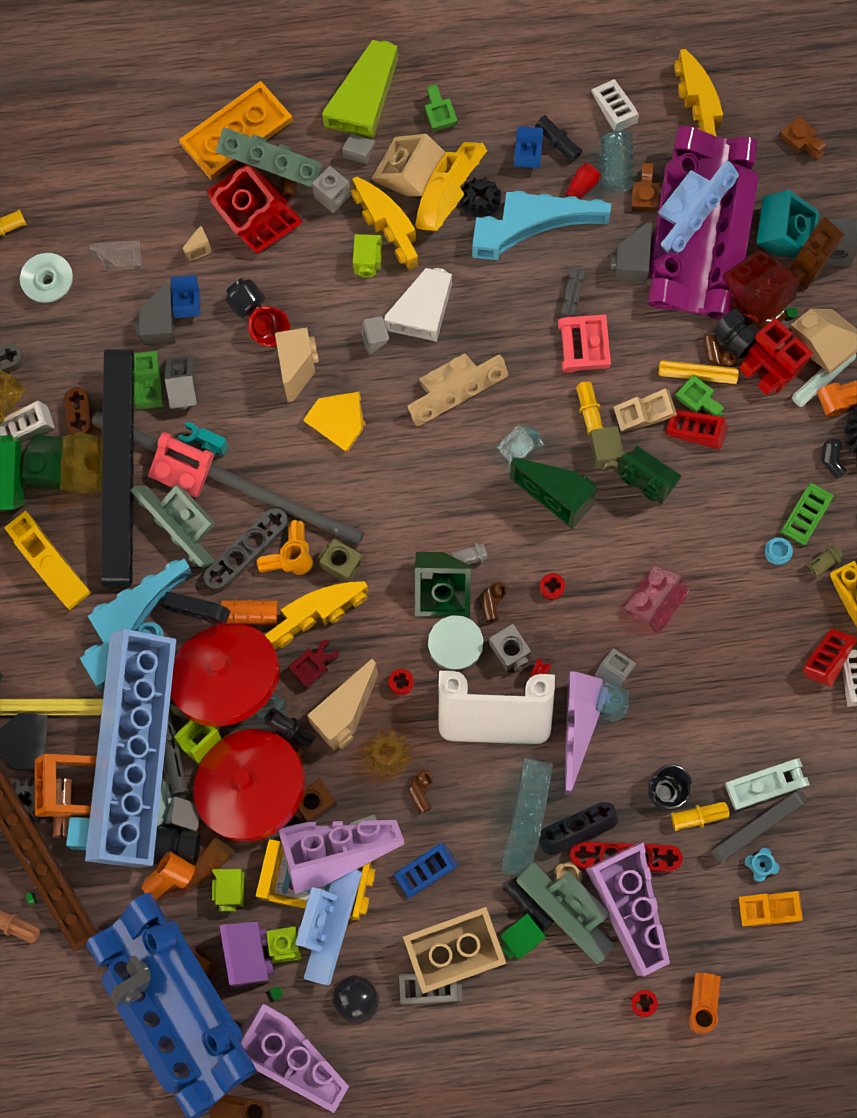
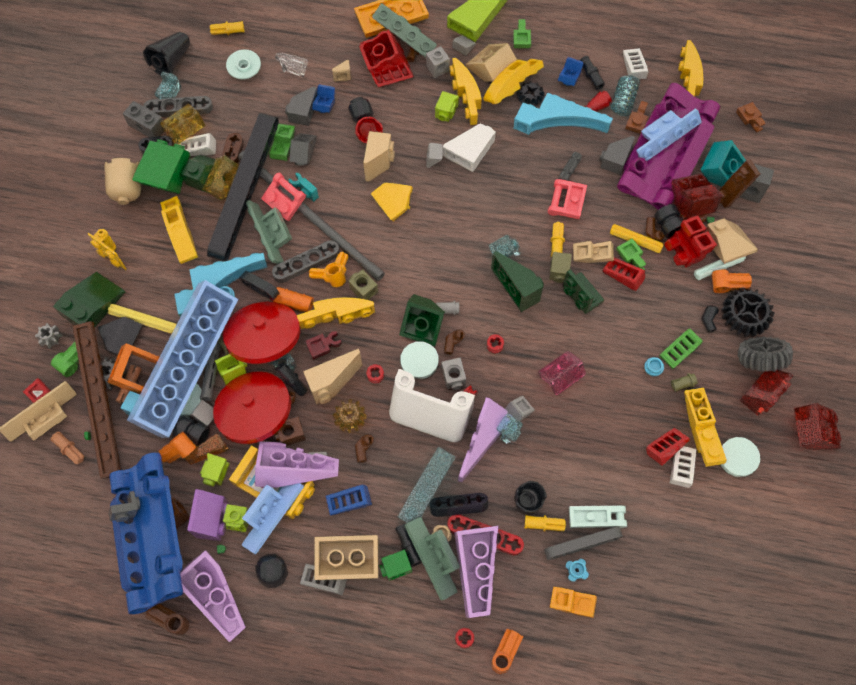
camera: 15 degrees right, 5 degrees down
(454, 384) = (474, 200): tan bracket -> none

